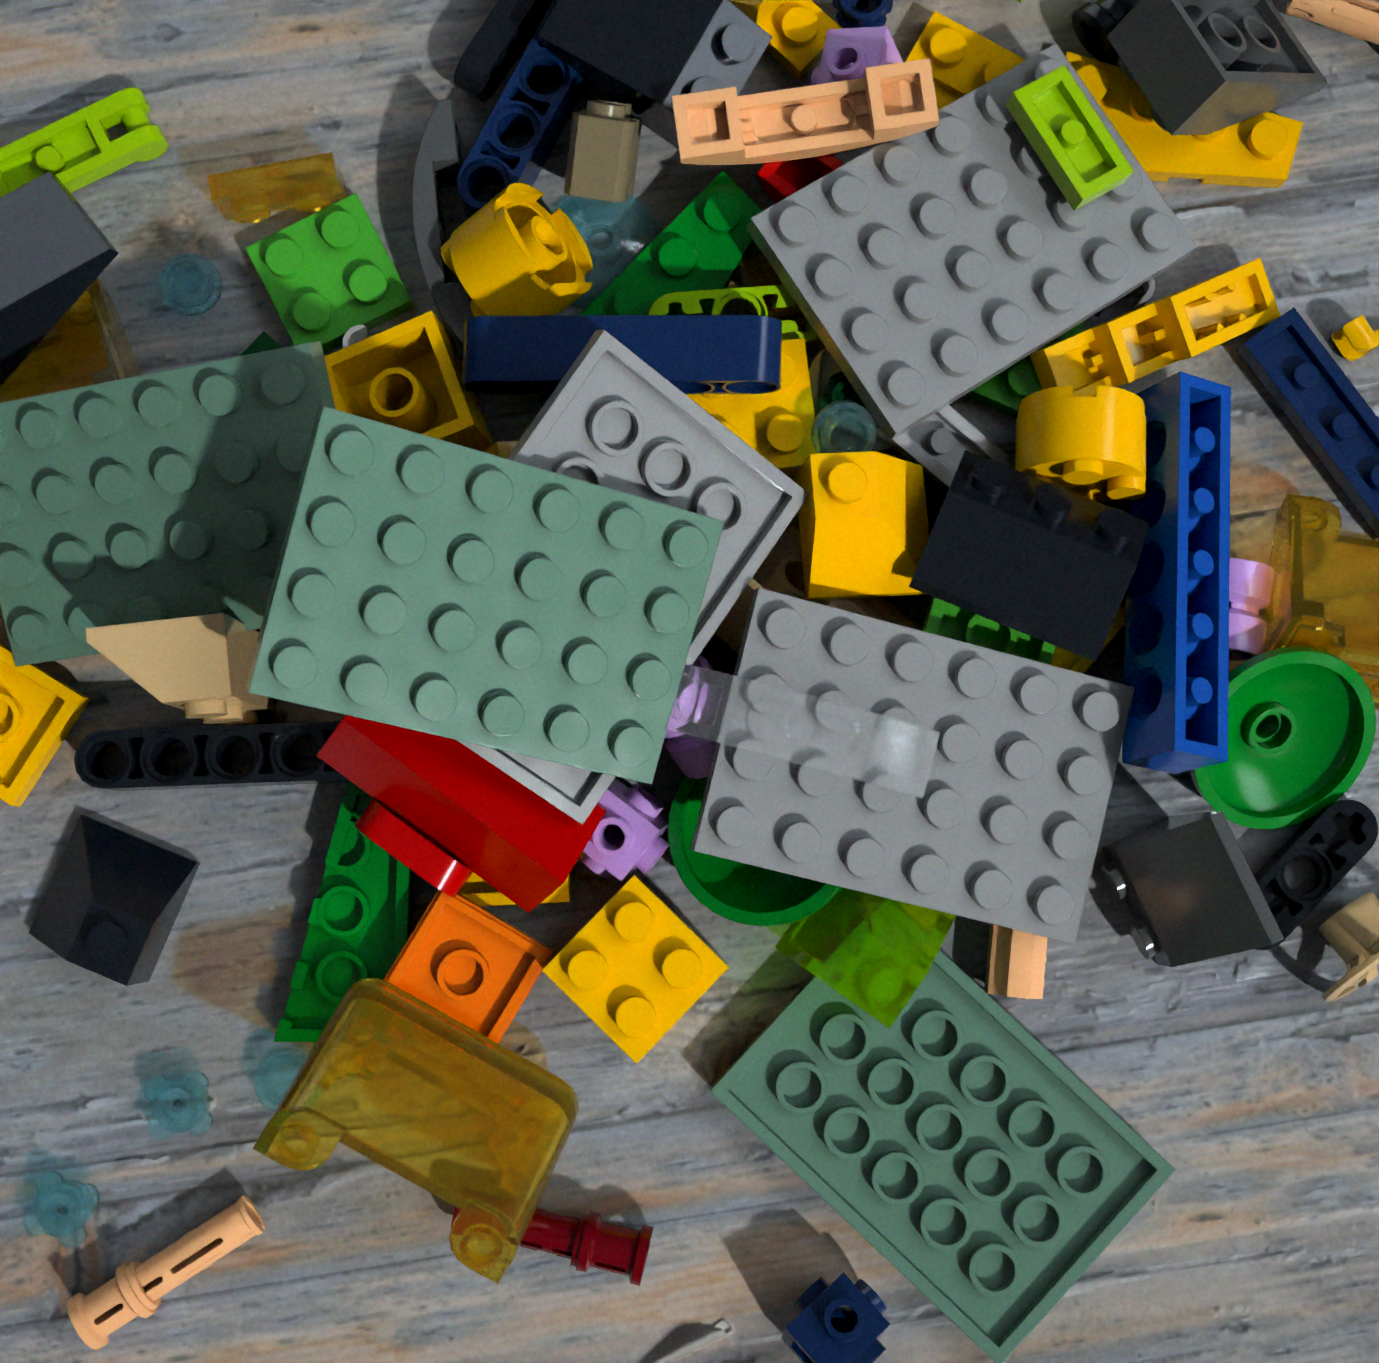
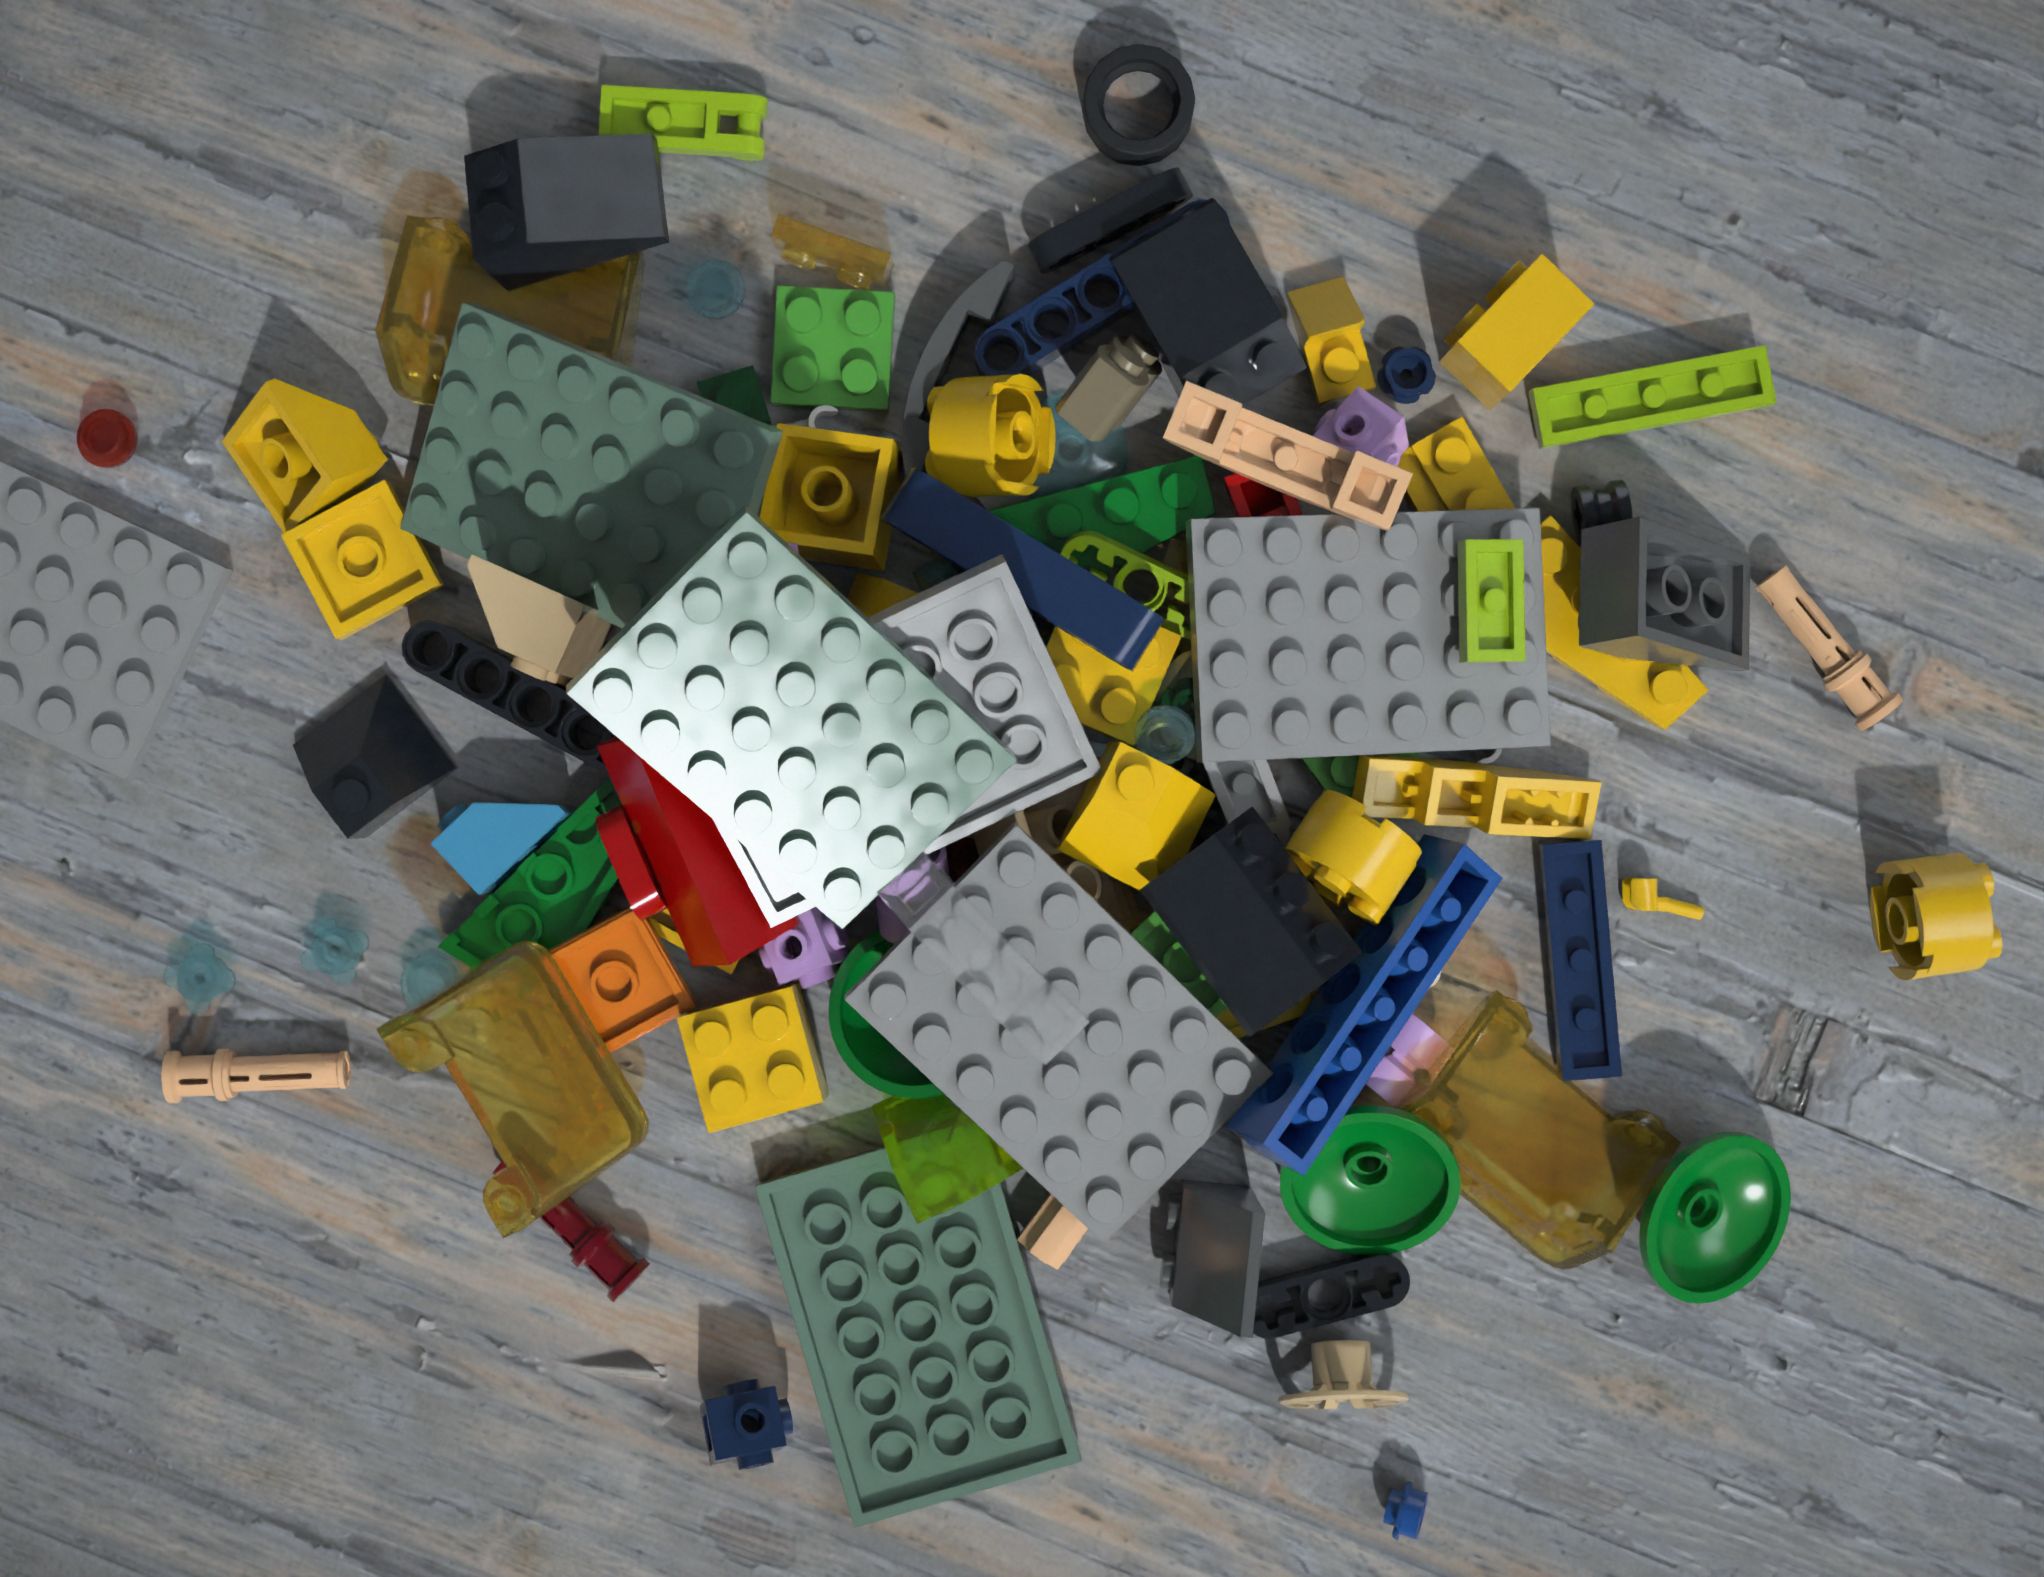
camera: 35 degrees right, 5 degrees up
(270, 905) = (495, 838): none -> dark azure slope

